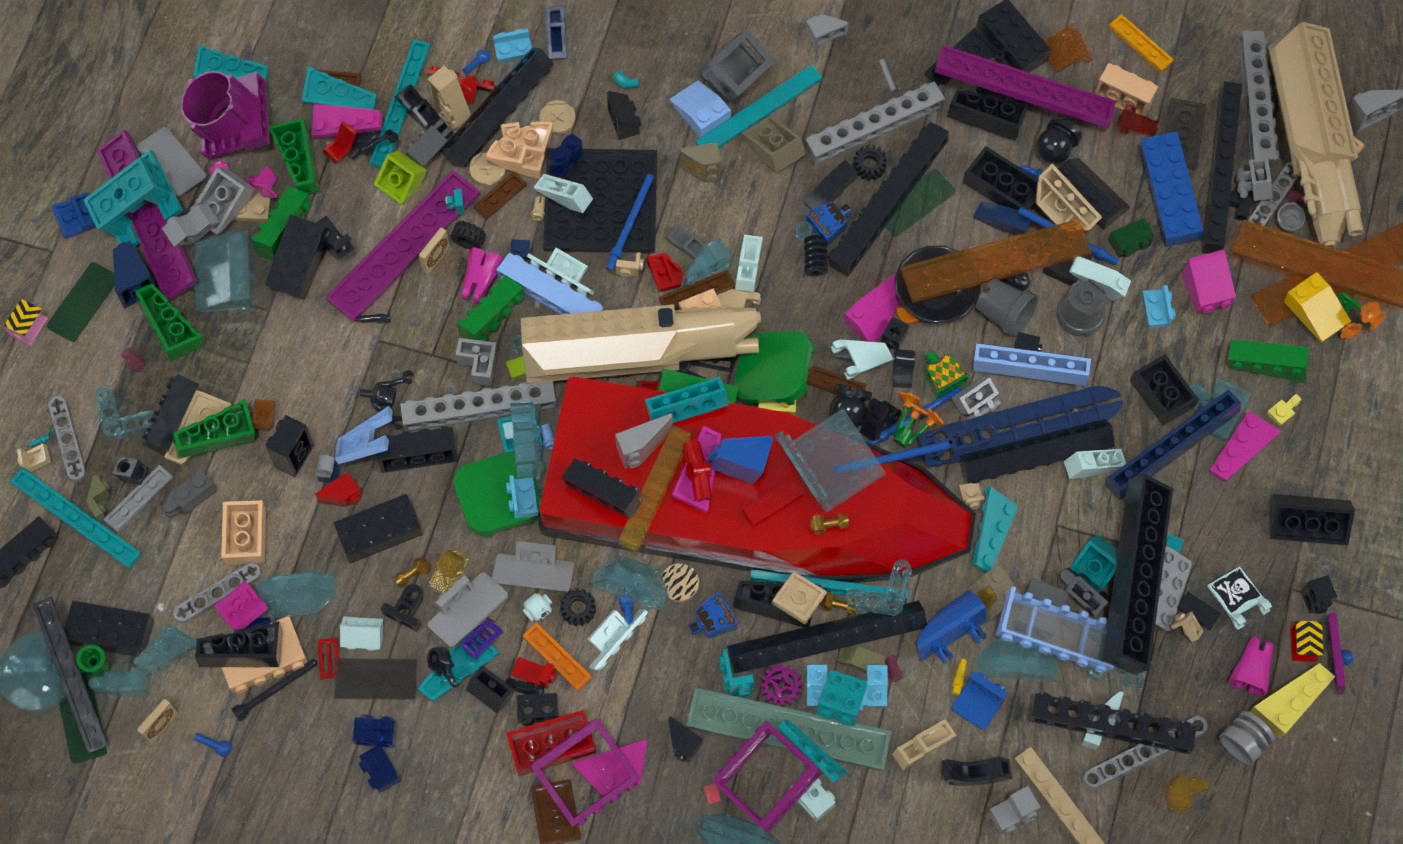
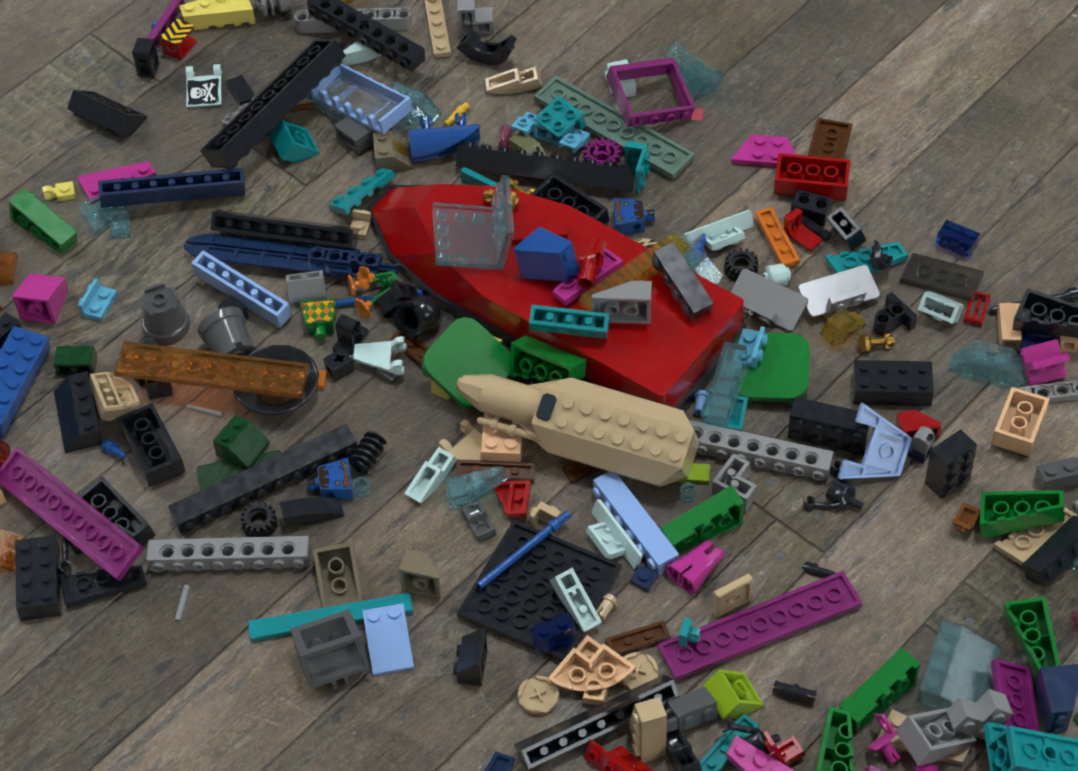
camera: 150 degrees left, 15 degrees down
(297, 256) = (875, 641): black brick -> none
(336, 243) = (830, 649): black arch -> none
(352, 201) = (794, 692): none -> black pin
(379, 769) = (964, 211): clear blue brick -> none
(467, 235) = (691, 599): black tyre -> none
(475, 654) = (846, 255): dark purple slope -> none
(611, 796) = (797, 152): magenta window -> none
(623, 81) = (449, 701): teal arm -> none
(684, 741) = (702, 144): black slope -> none
(799, 597) = (554, 186): tan tile -> none
(818, 756) = (604, 91): teal wing -> none
(825, 28) = (213, 666): light grey slope -> none
(874, 311) = (342, 394): dark pink wedge -> none
(887, 599) = (482, 164): clear light blue beam -> none
(913, 452) = (397, 226): blue bar -> none
(930, 220) = (240, 442): none -> dark green slope
(979, 700) = (452, 92): blue bracket -> none
(1002, 218) = (174, 420): dark blue slope -> none
(1057, 141) = (78, 457): black tile -> none
(1085, 591) = (319, 123): black hinge -> none
(1091, 463) = (248, 204): light aqua slope -> none
(1100, 253) = (111, 360): blue bar -> none
(1111, 280) = (128, 328): light aqua slope -> none
(1164, 389) = (146, 233): black brick -> none
(1190, 625) = (258, 80): tan bracket -> none
(1253, 668) = (232, 38): dark pink piece -> none

